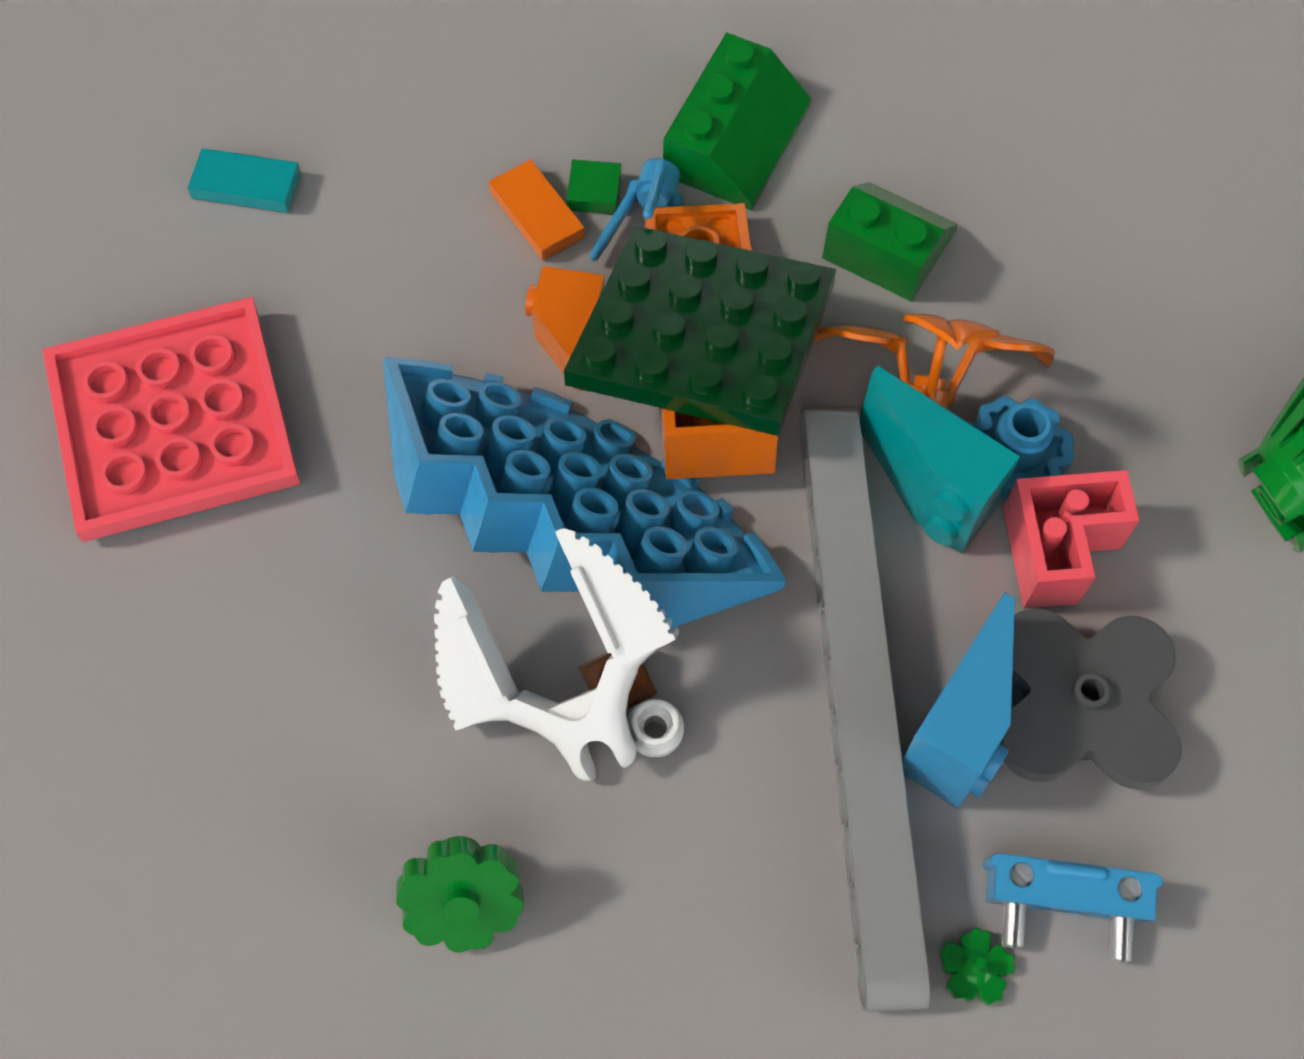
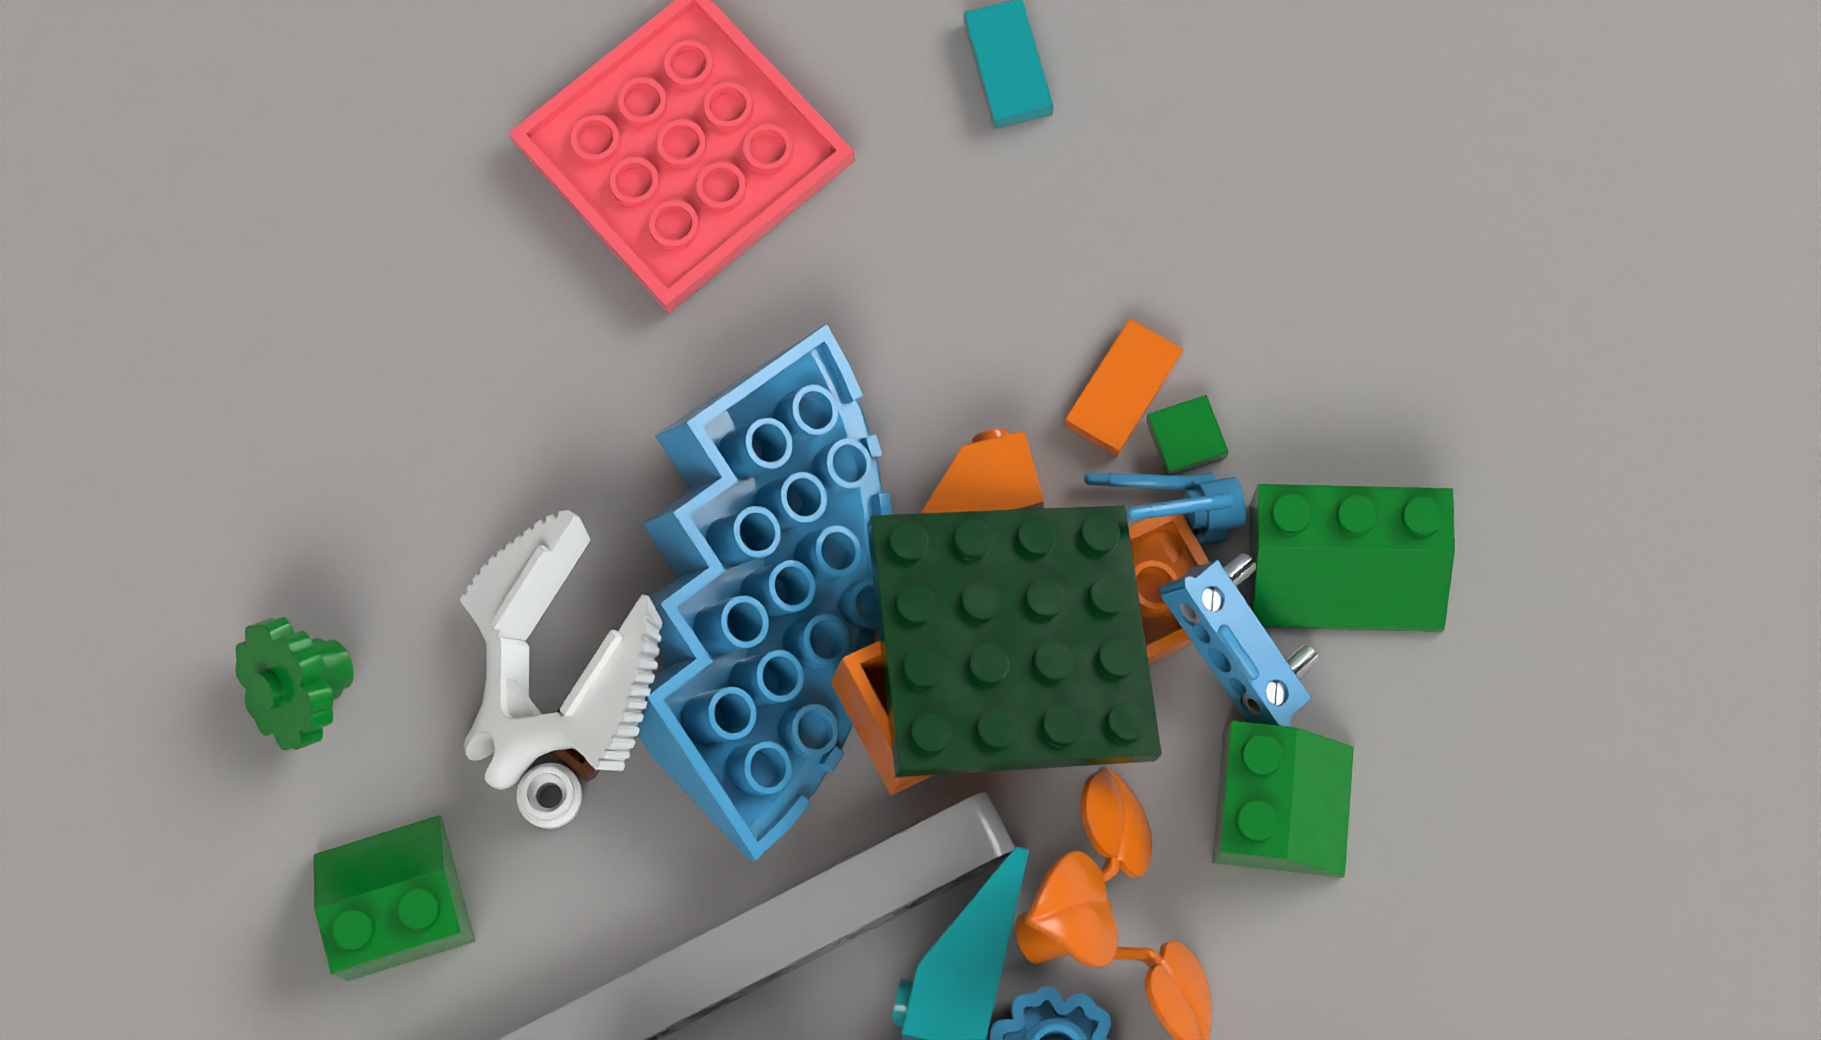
camera: 70 degrees right, 10 degrees up
(685, 886) = (389, 900): none -> green slope
(768, 204) = (1236, 643): none -> dark azure piece

